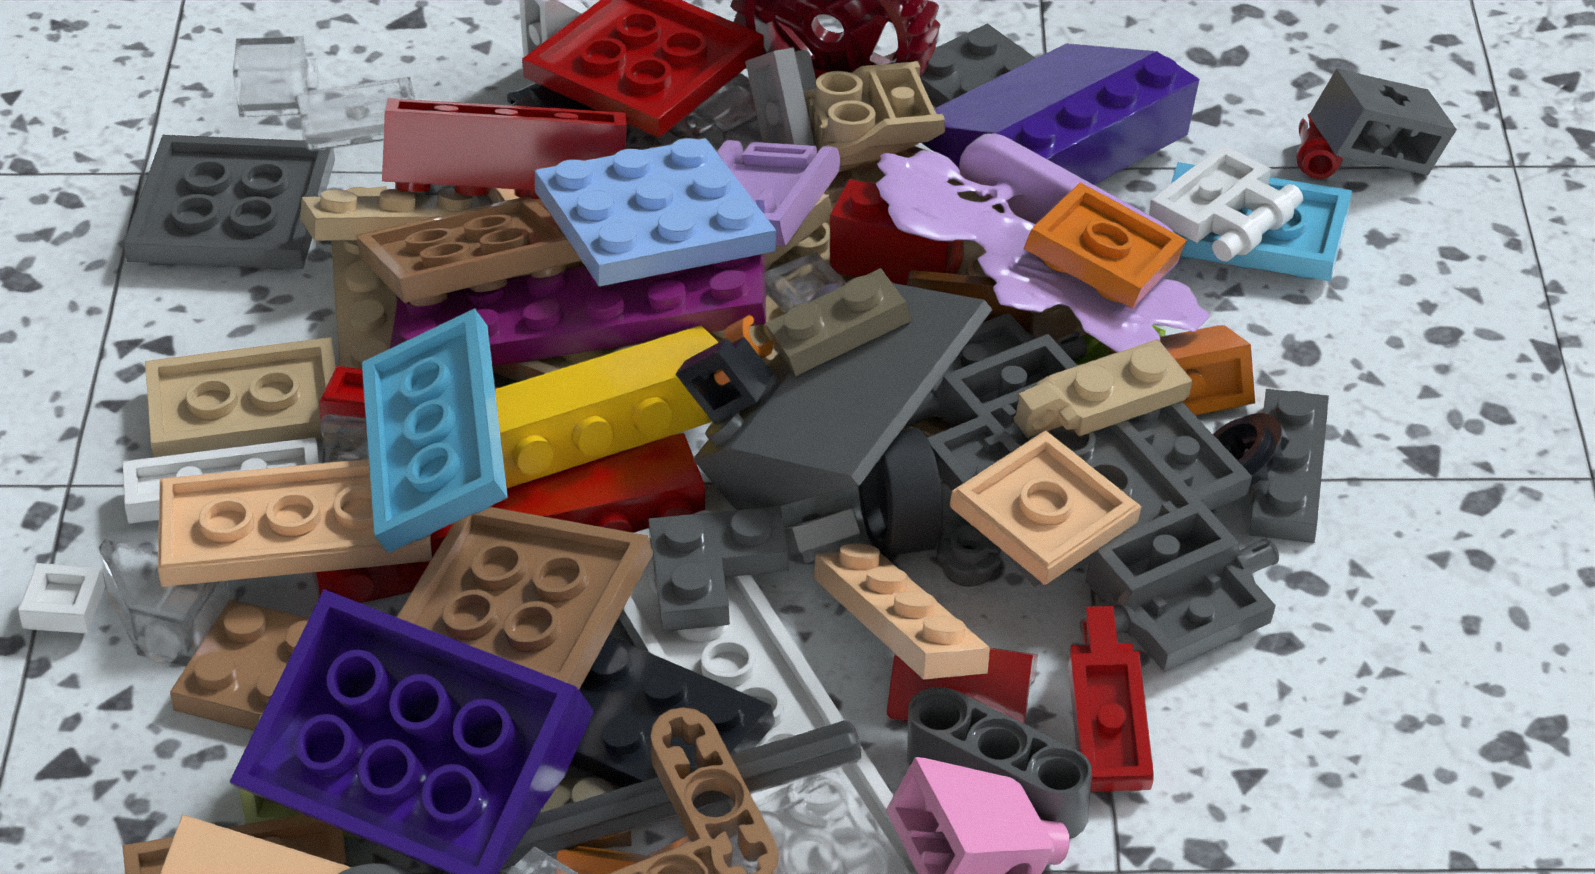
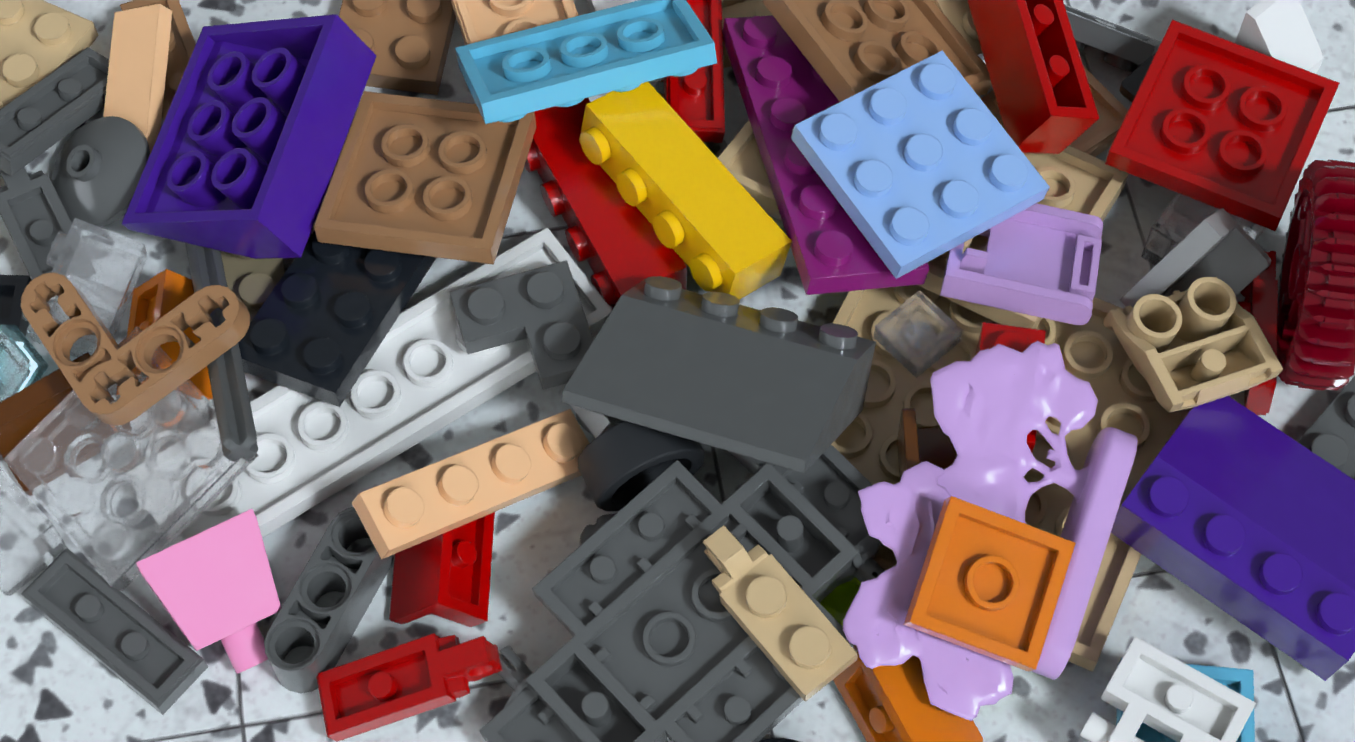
camera: 80 degrees right, 20 degrees up
(728, 373) = (697, 265): black piece -> none
(838, 321) = (772, 343): dark tan plate -> none
(1045, 507) = (604, 580): light nougat tile -> none

